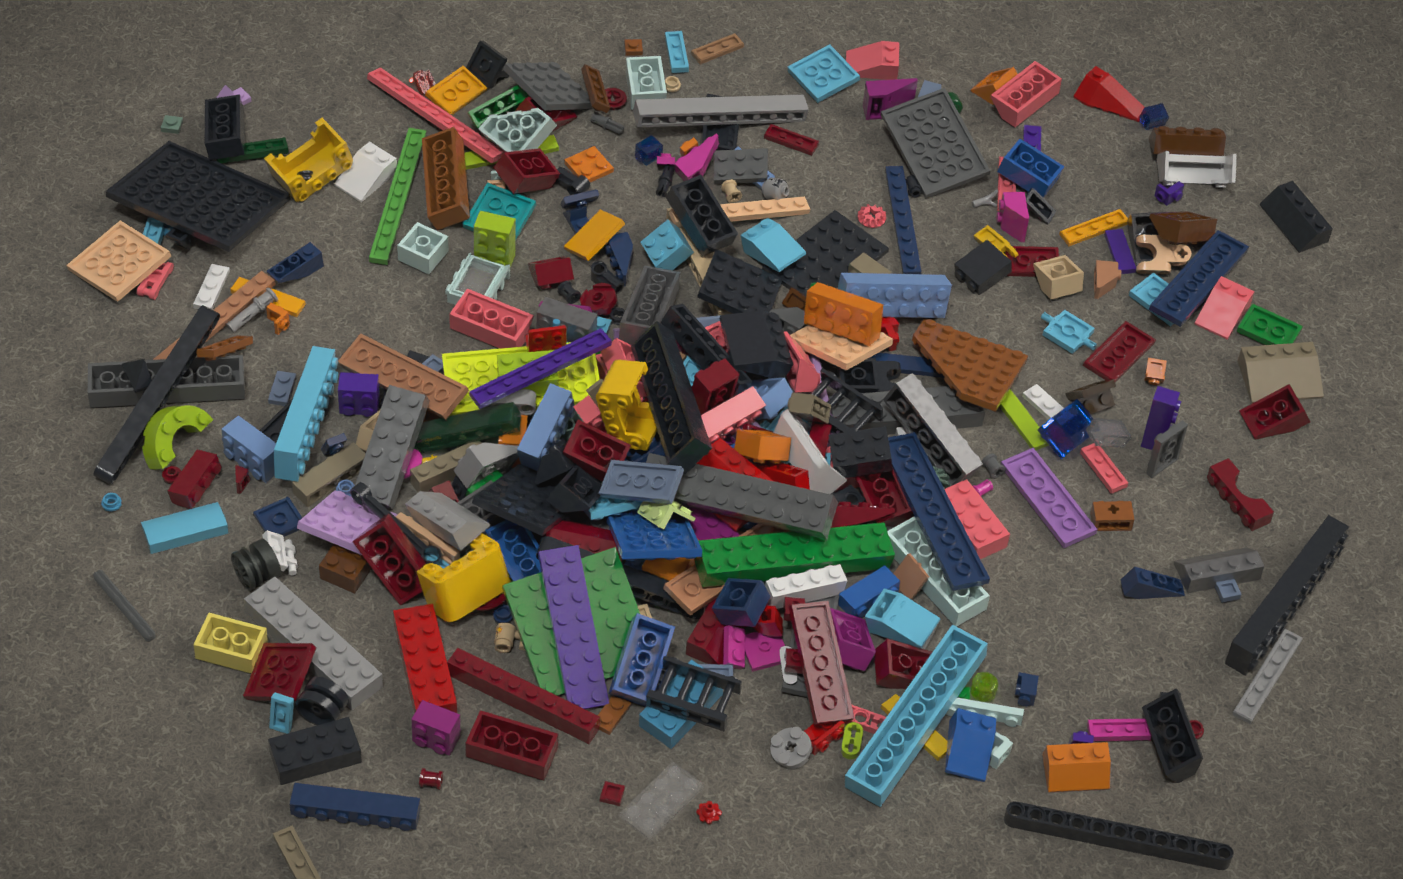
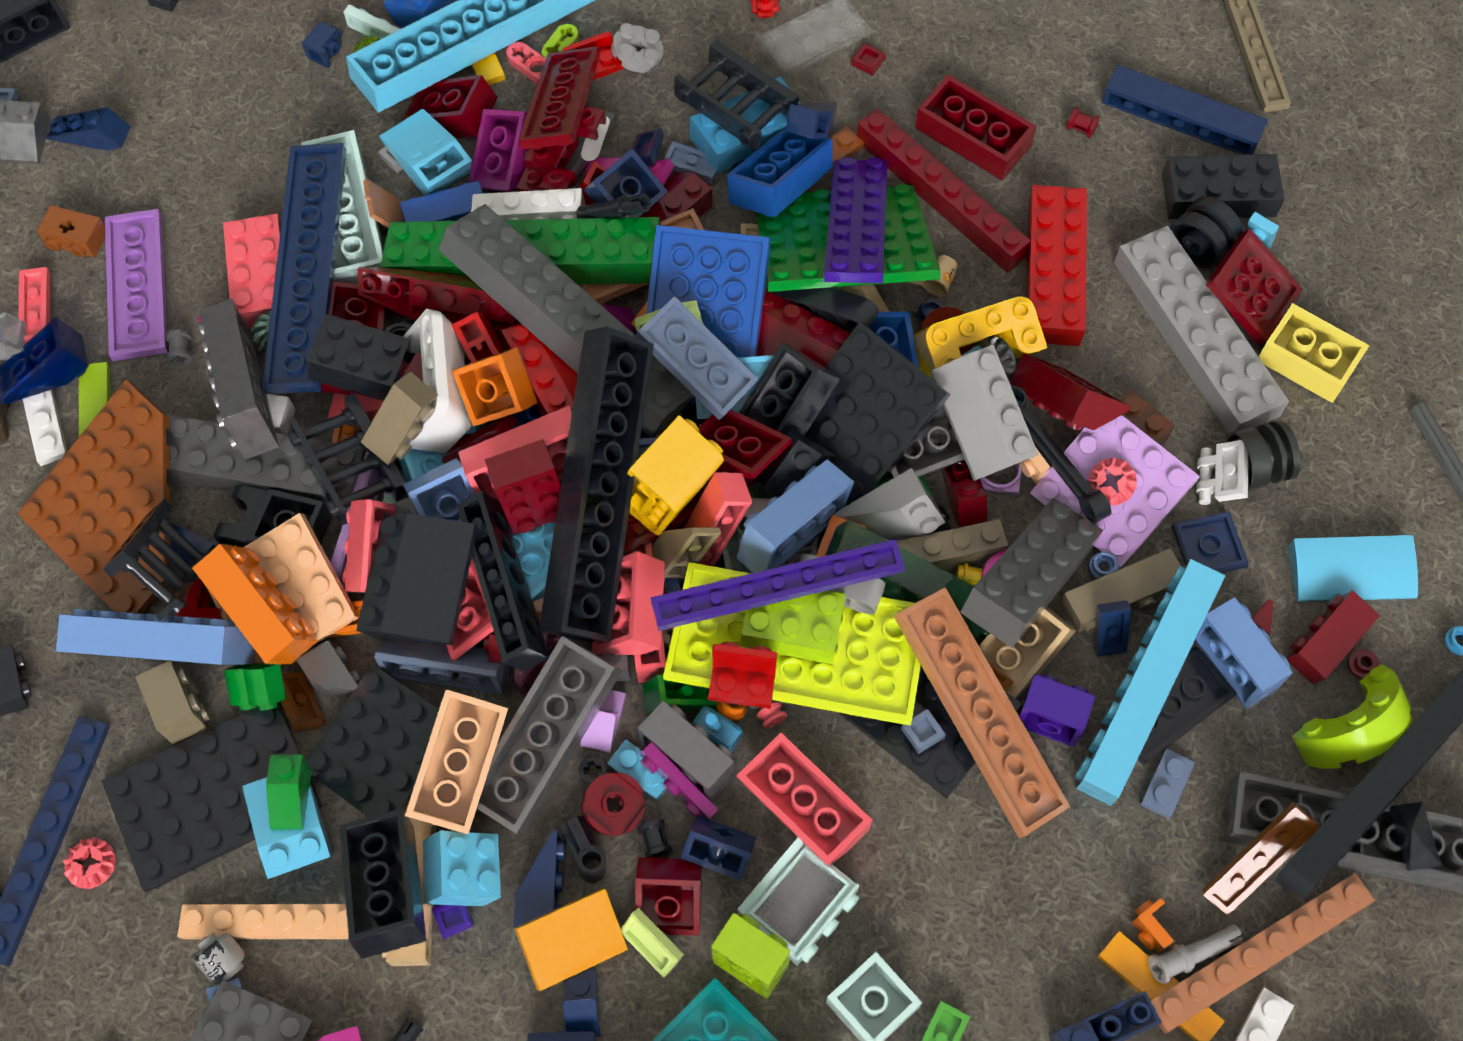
camera: 155 degrees left, 15 degrees up
(353, 513) = (1126, 484): none -> coral gear
(436, 728) = (1065, 160): magenta brick -> none
(521, 286) = (718, 847): none -> dark blue brick
(551, 247) = (651, 942): none -> yellowish green tile
(630, 694) = (811, 119): none -> dark blue slope
(688, 268) = (456, 761): none -> light nougat brick
(731, 191) = (293, 986): tan bush -> none
(733, 568) = (621, 206): none -> black pin
(748, 668) = (648, 145): none -> dark blue plate
(776, 247) = (287, 791): none -> green slope
(921, 305) = (137, 547): none -> black fence

